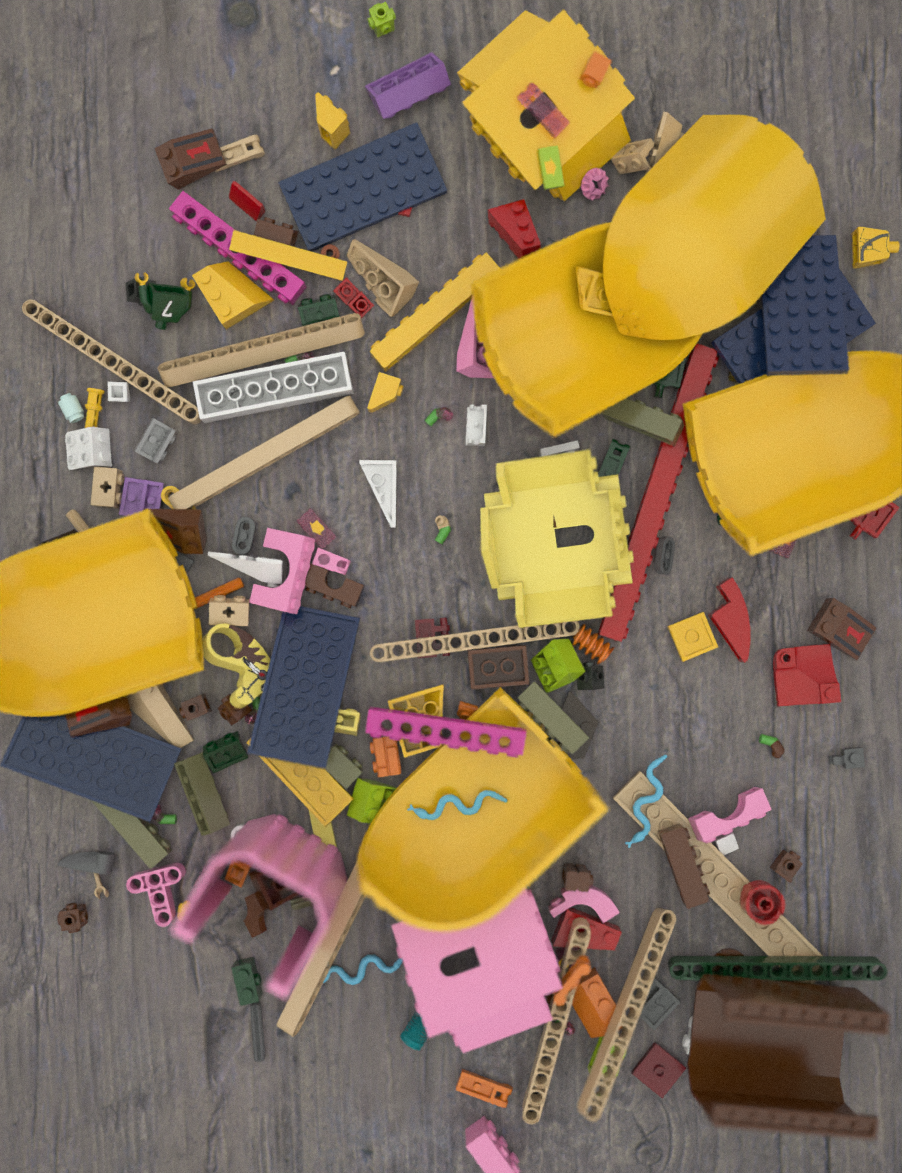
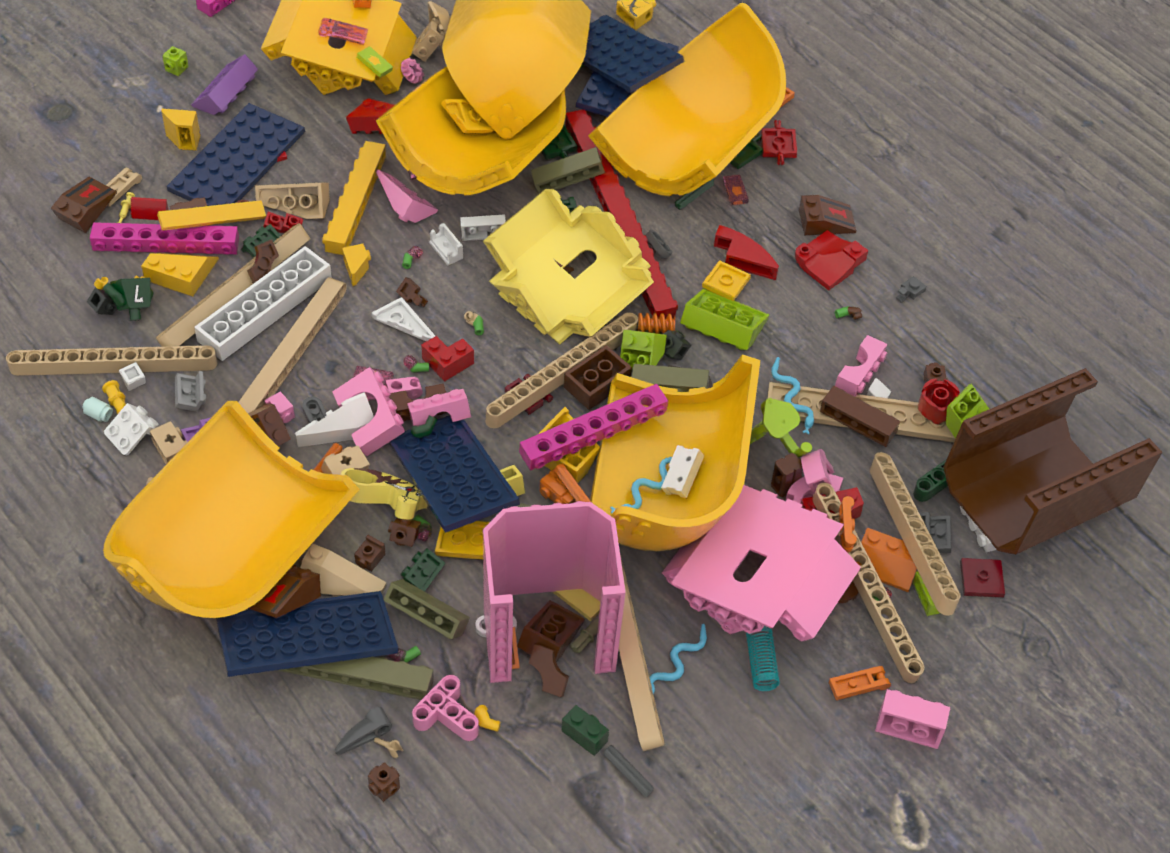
camera: 40 degrees left, 35 degrees down
(217, 512) = (283, 406): none -> bright pink brick
(226, 185) = (126, 205): none -> light yellow piece
(304, 338) = (265, 255): none -> reddish brown tile
(314, 624) = (424, 430): none -> dark green arm
(351, 615) = (453, 402): none -> bright pink arch
(358, 541) = (414, 366): none -> arm
(385, 558) = (447, 360): none -> red brick
(391, 769) = (571, 484): none -> orange axle
(408, 457) = (409, 292): none -> reddish brown plate
(490, 817) = (682, 471): none -> white piece
(521, 429) = (477, 227): none -> white piece
(596, 900) = (816, 468): none -> bright pink arch
(598, 844) = (778, 420): none -> lime plate
(658, 677) = (723, 319): none -> lime slope
(772, 938) = (964, 406): none -> lime slope

